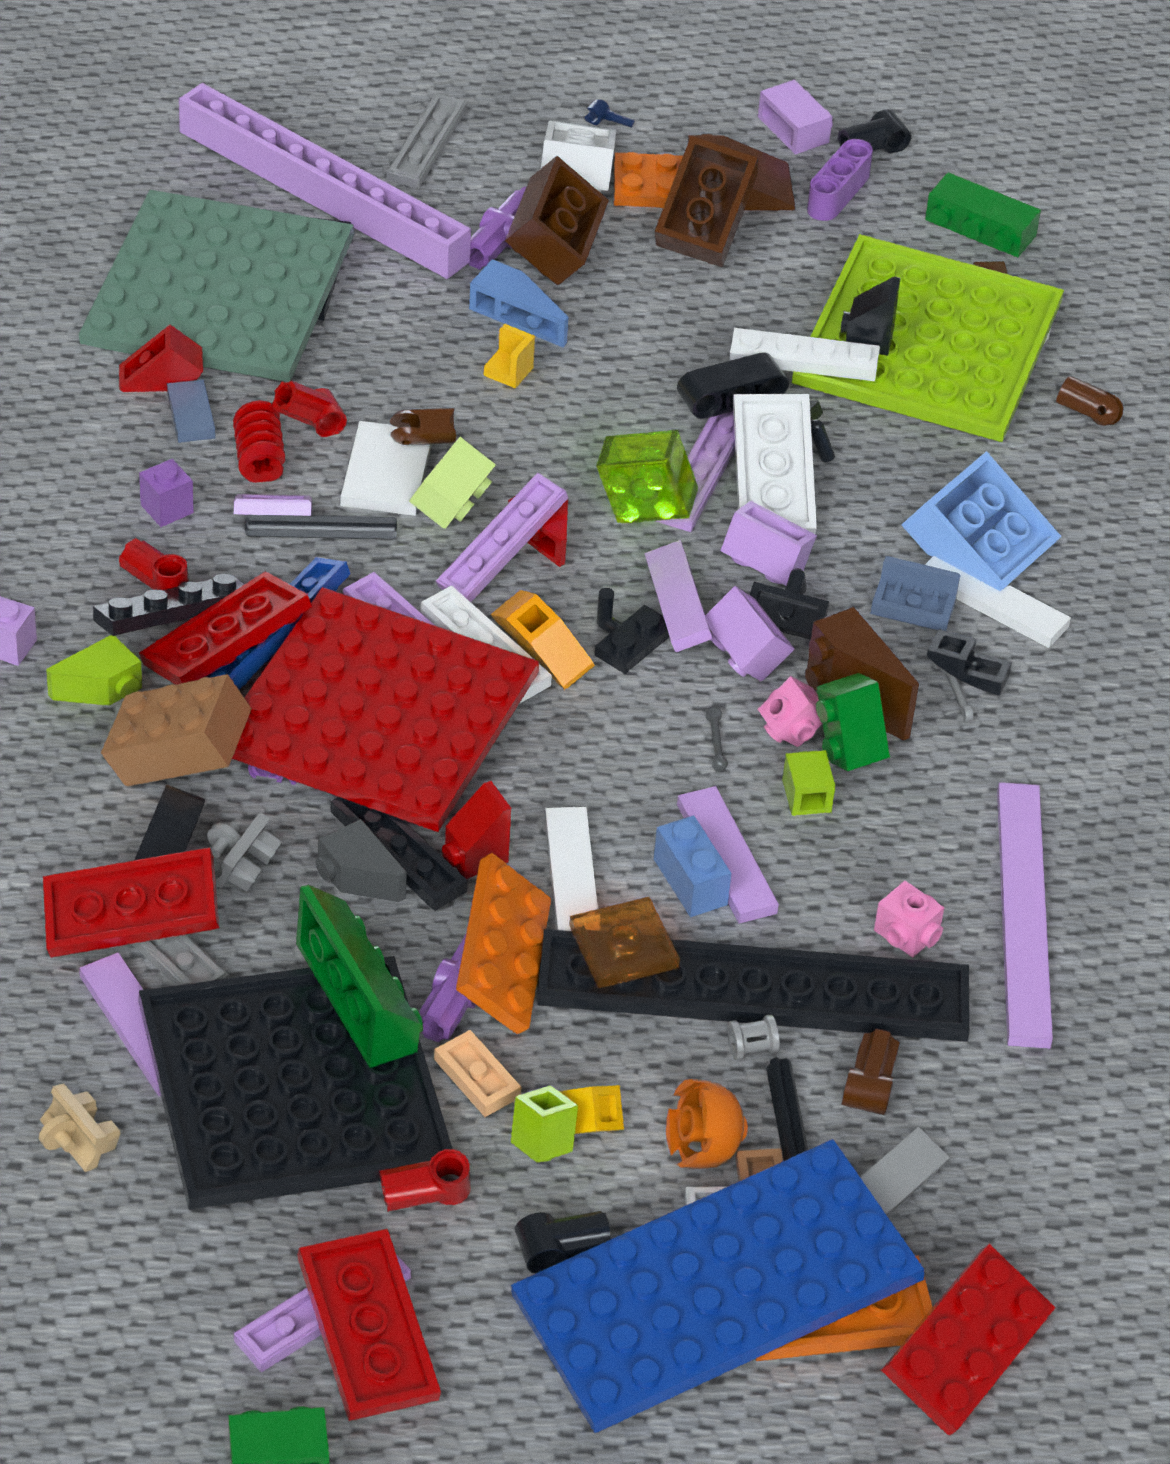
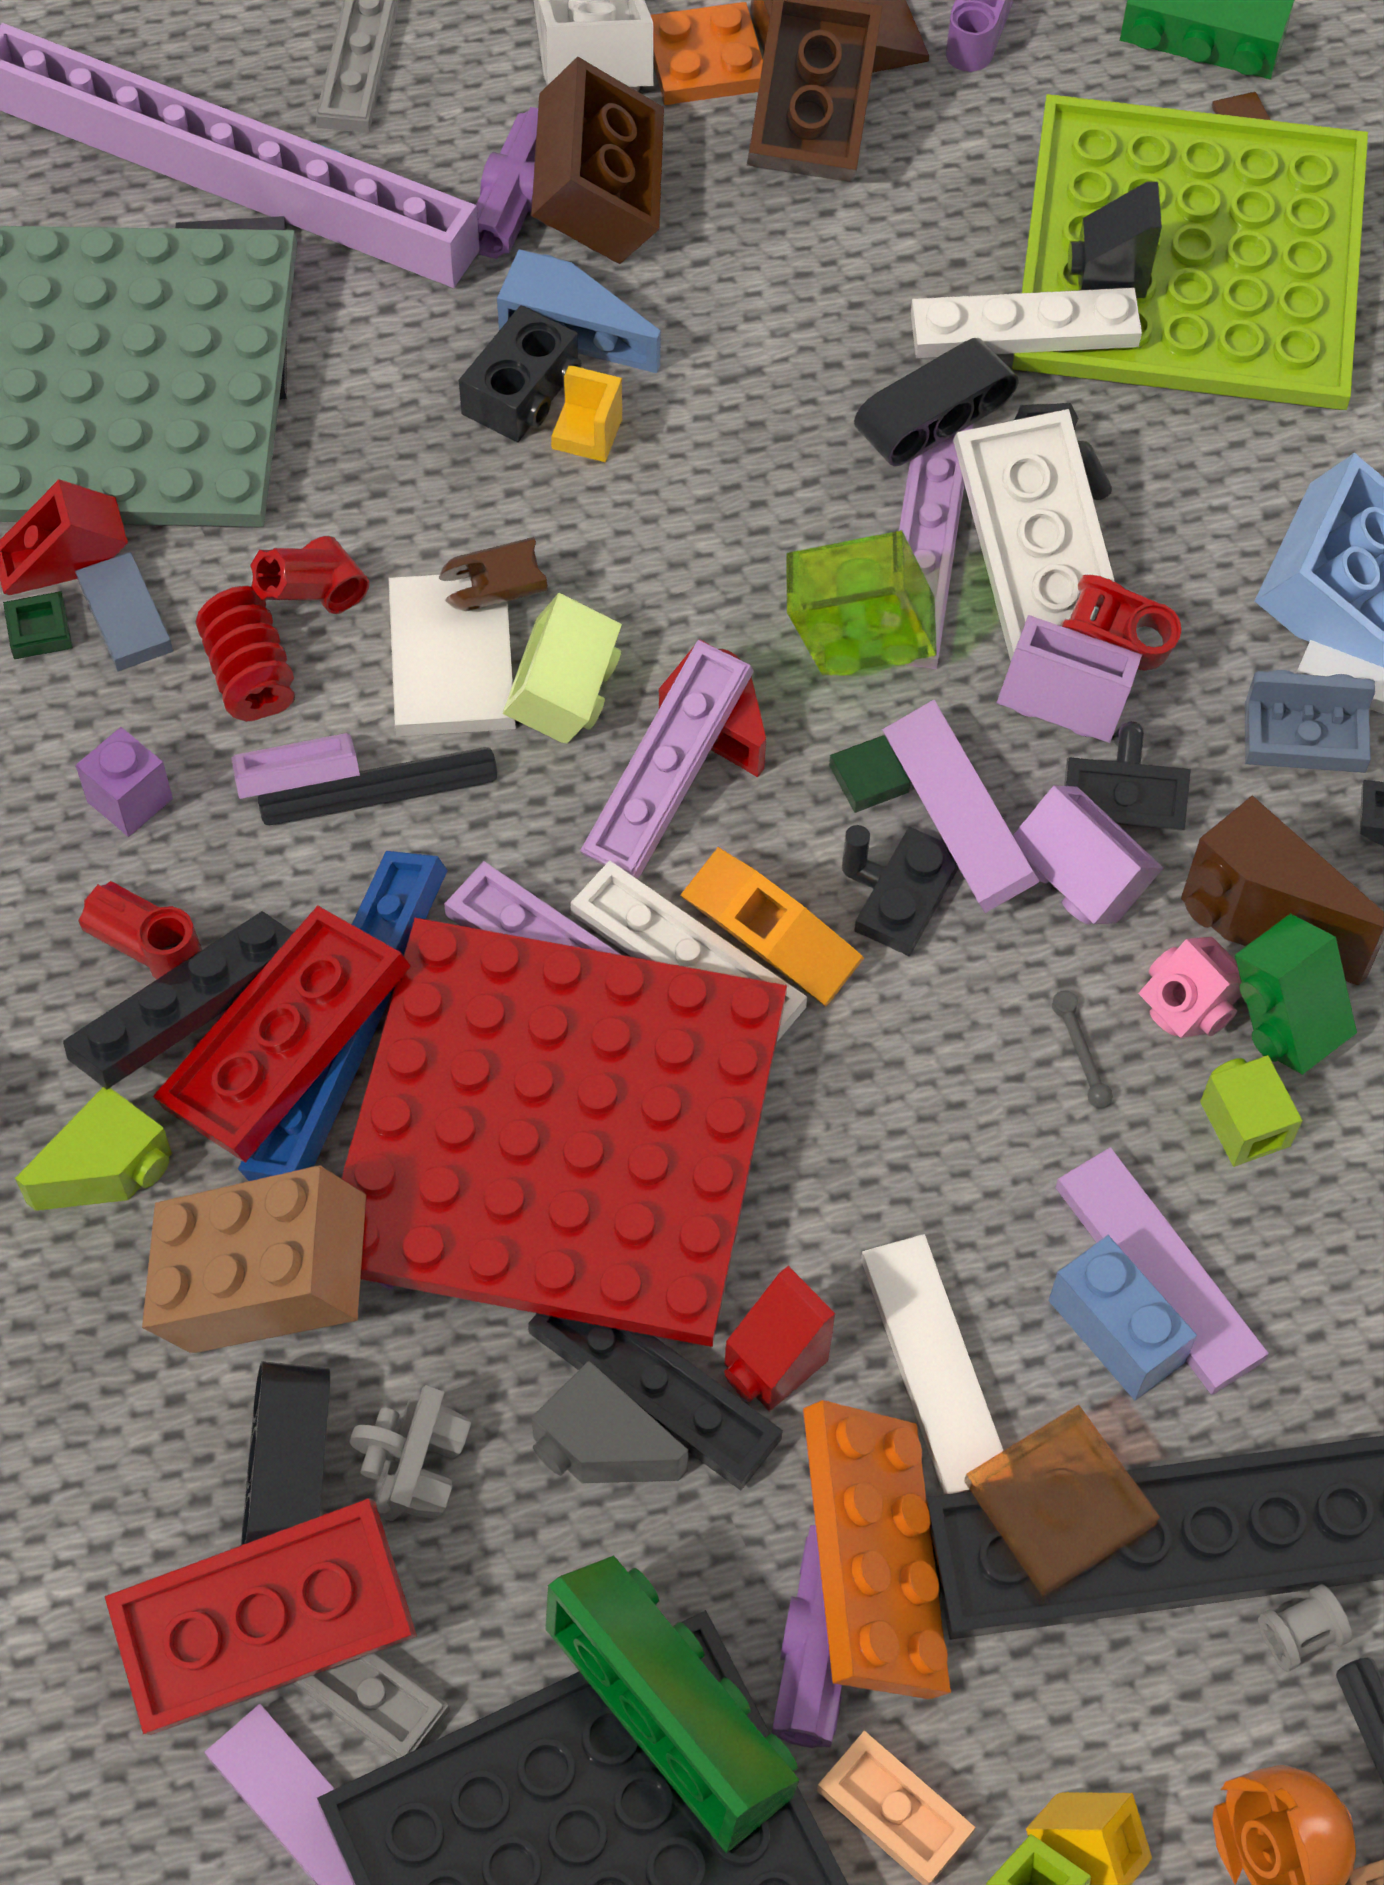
camera: 10 degrees left, 15 degrees up
(135, 409) = (37, 625): none -> dark green tile
(471, 328) = (518, 374): none -> black brick
(629, 575) = (869, 773): none -> dark green tile
(812, 514) = (1120, 615): none -> red piece

